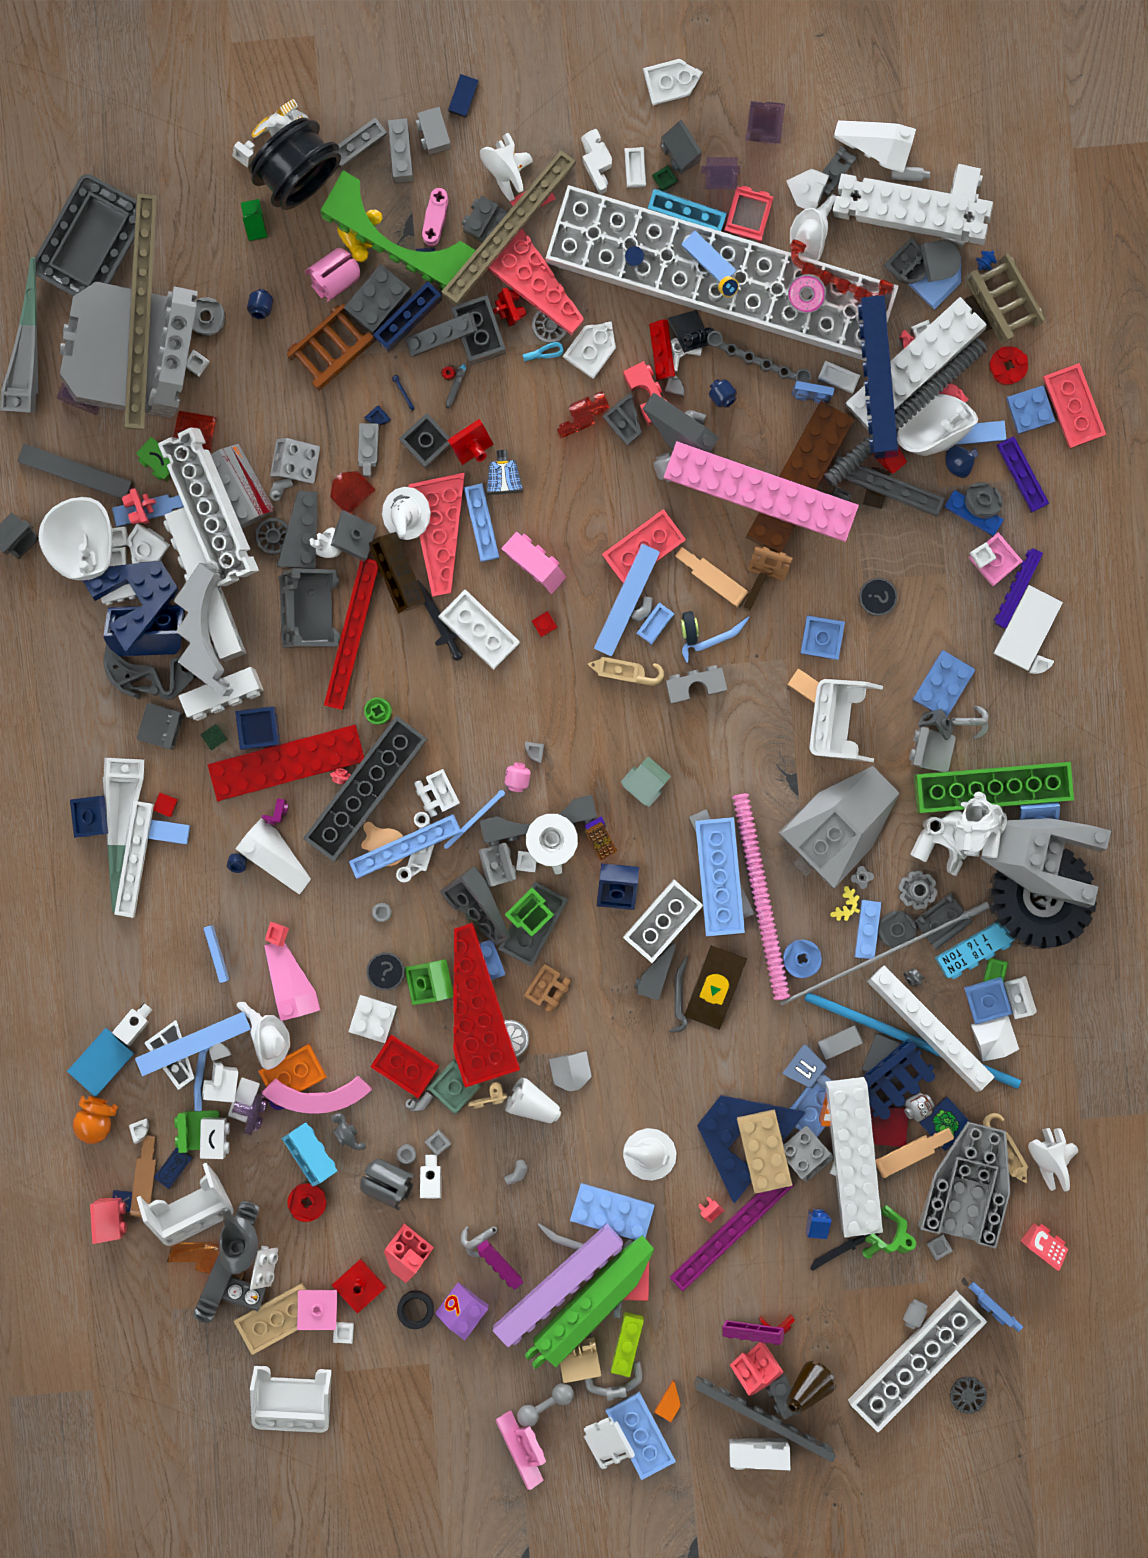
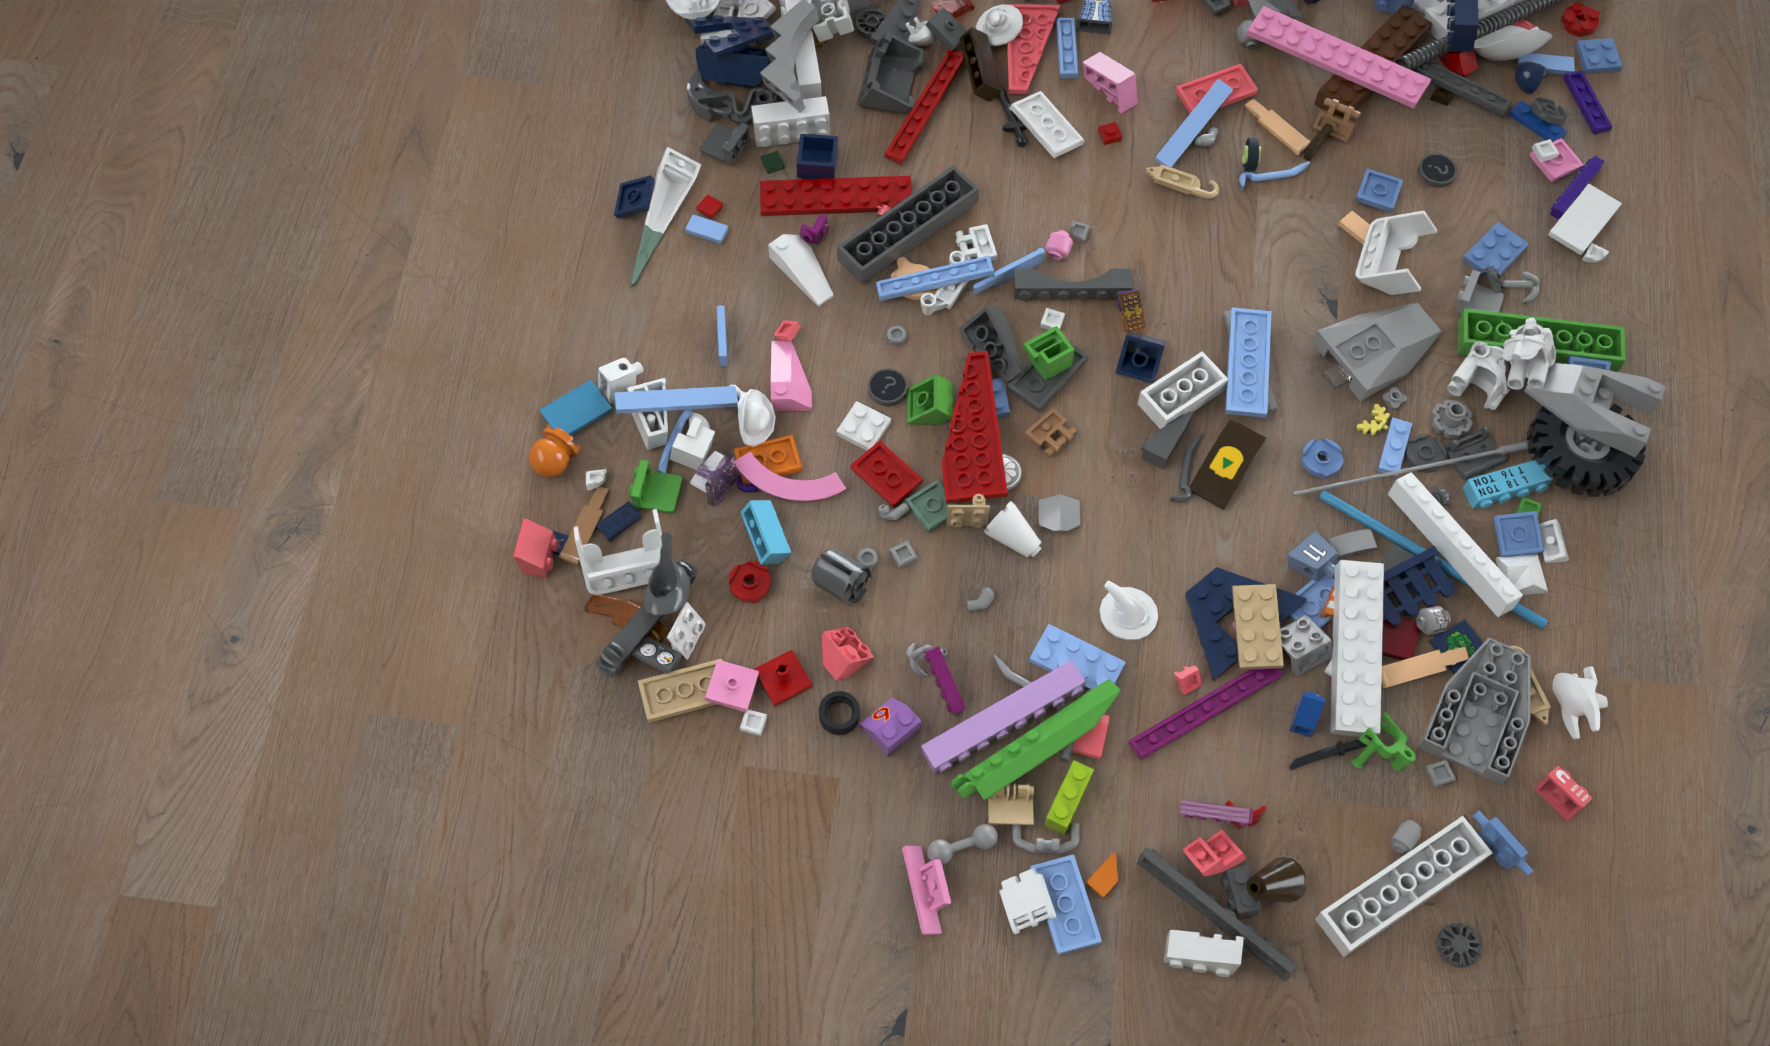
camera: 15 degrees right, 25 degrees down
(134, 859) = (665, 242): white plate -> none
(213, 1138) = (671, 494): white brick -> none
(237, 863) = (764, 265): dark blue tile -> none
(290, 1402) = (674, 783): white windscreen -> none
(346, 1133) = (809, 524): dark grey piece -> none
(377, 711) = (933, 166): bright green wheel -> none
(430, 1188) = (888, 578): white torso -> none
(497, 864) = (1023, 314): light grey bracket -> none
(552, 841) = (1084, 294): white piece -> none
(646, 781) = (1186, 271): sand green plate -> none
(655, 623) = (1216, 152): light blue tile -> none
(712, 679) = (1264, 202): light grey arch -> none
(761, 897) = (1287, 395): bright pink piece -> none
(1074, 405) = (1641, 58): coral plate -> none

